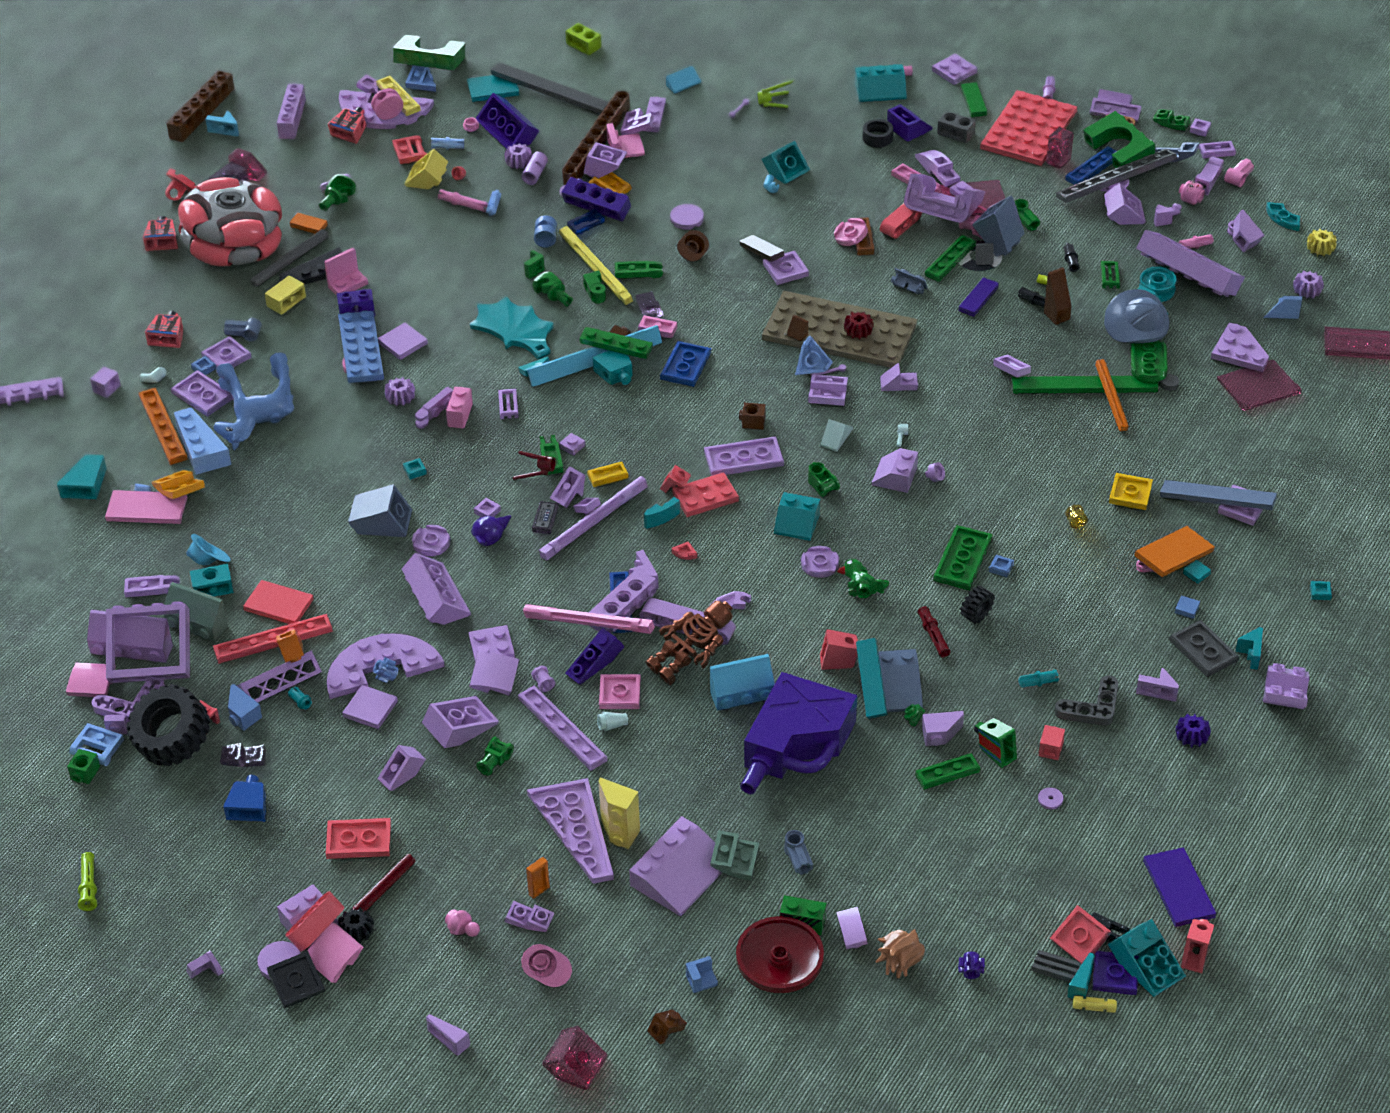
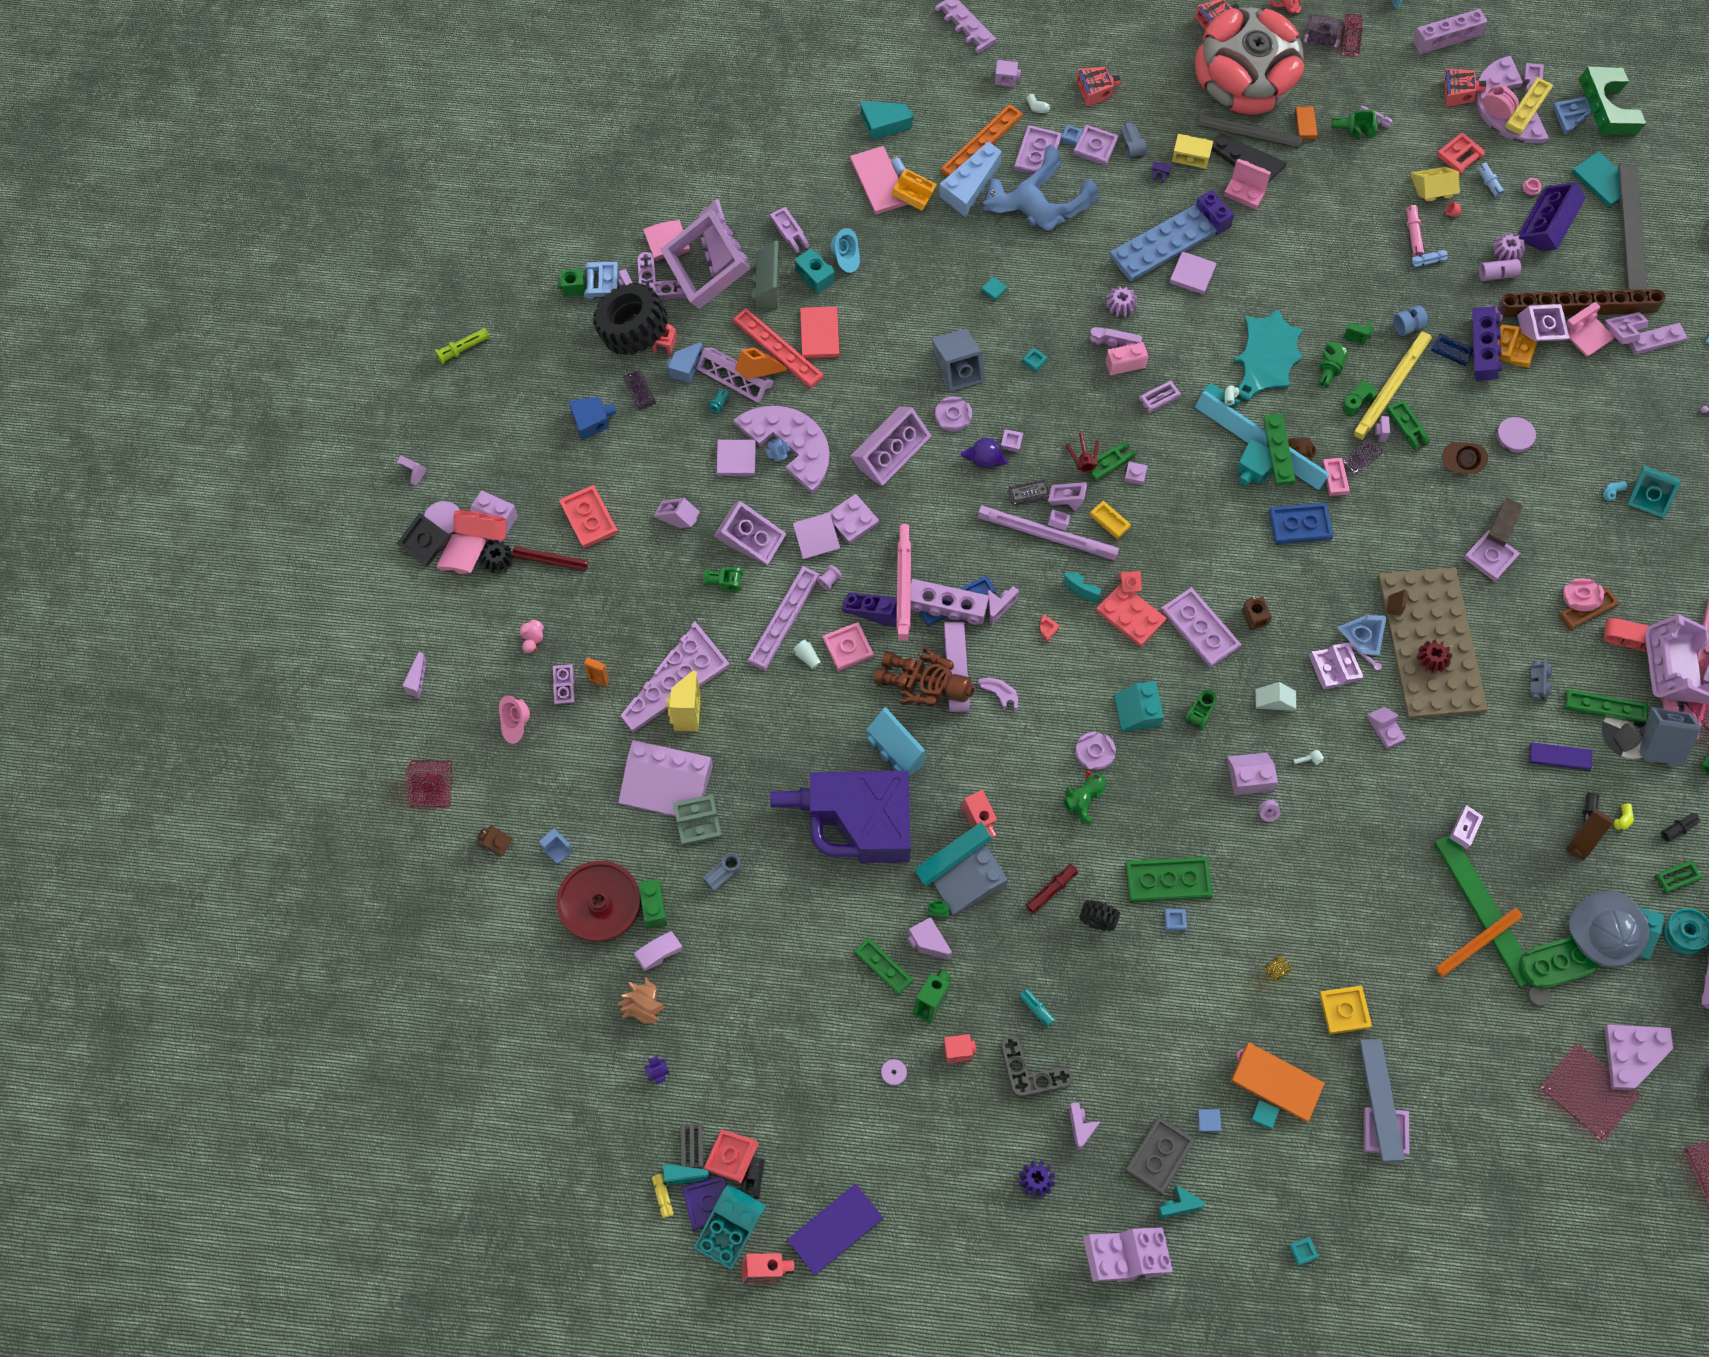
camera: 65 degrees right, 20 degrees up
(286, 320) = (1160, 168): none -> dark purple tile
(322, 469) = (994, 289): none -> teal tile
(539, 354) = (1230, 393): none -> light aqua arm
(633, 283) = (1382, 429): none -> lavender plate

